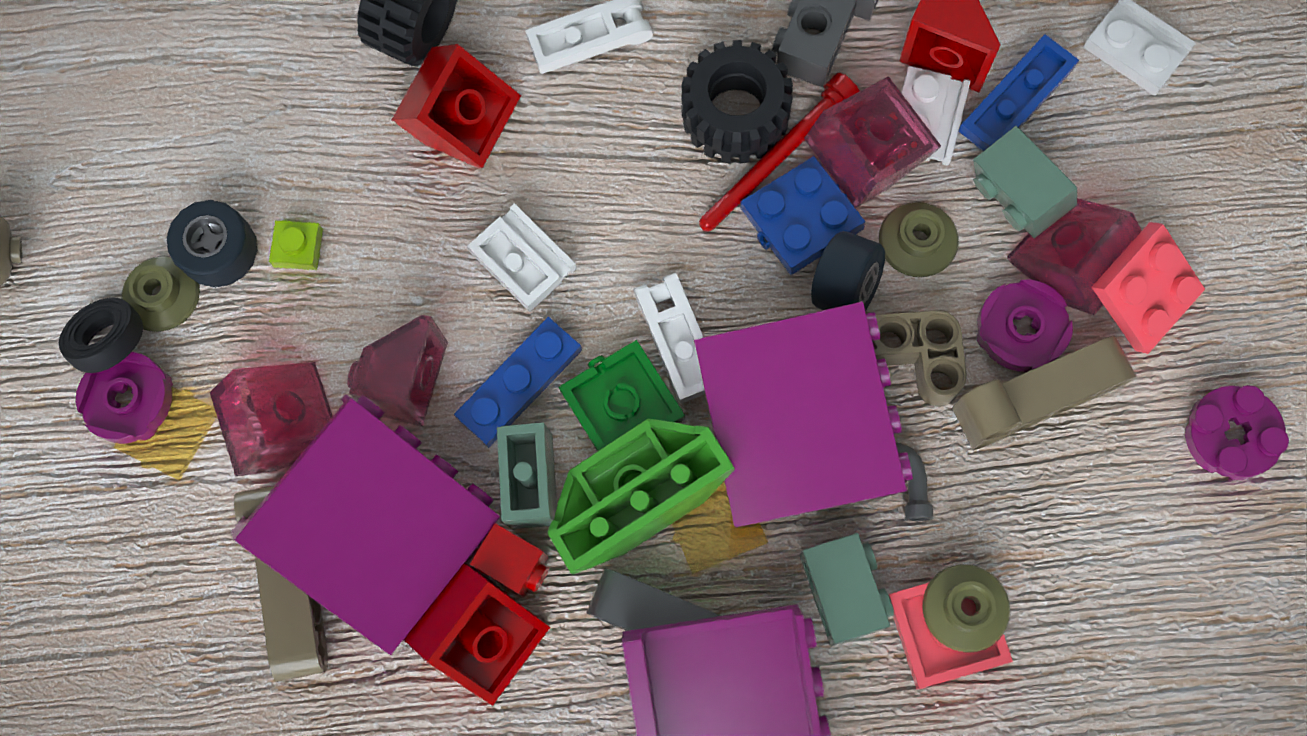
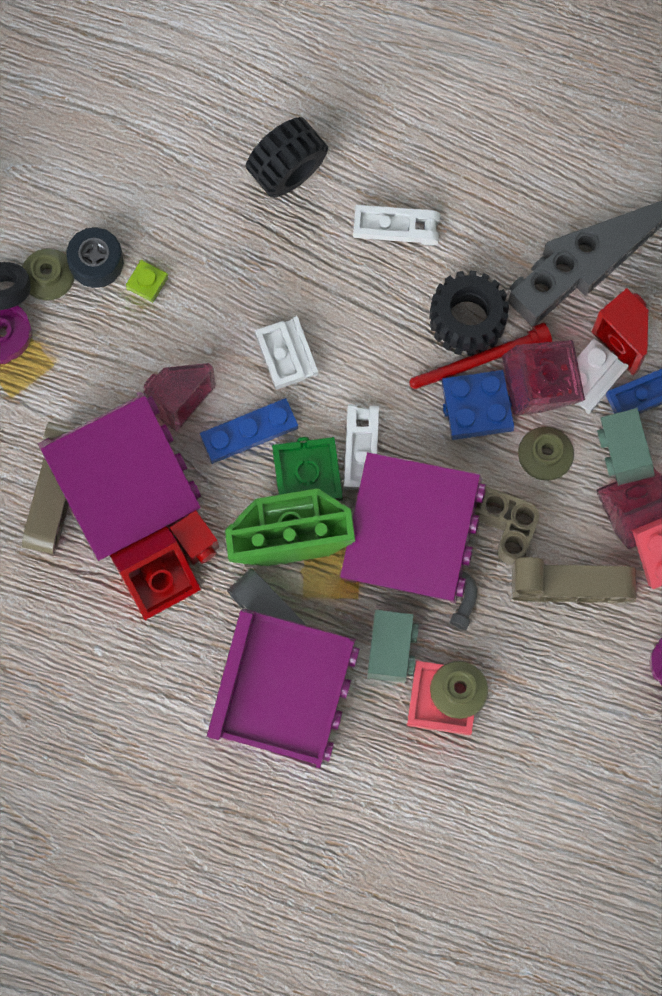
camera: 15 degrees right, 0 degrees up
(270, 415) = (86, 383): clear pink slope -> none
(456, 105) = (289, 235): red slope -> none
(526, 475) = (228, 490): sand green brick -> none
(847, 272) = (486, 454): black wheel -> none
(1049, 319) = (583, 519): magenta plate -> none

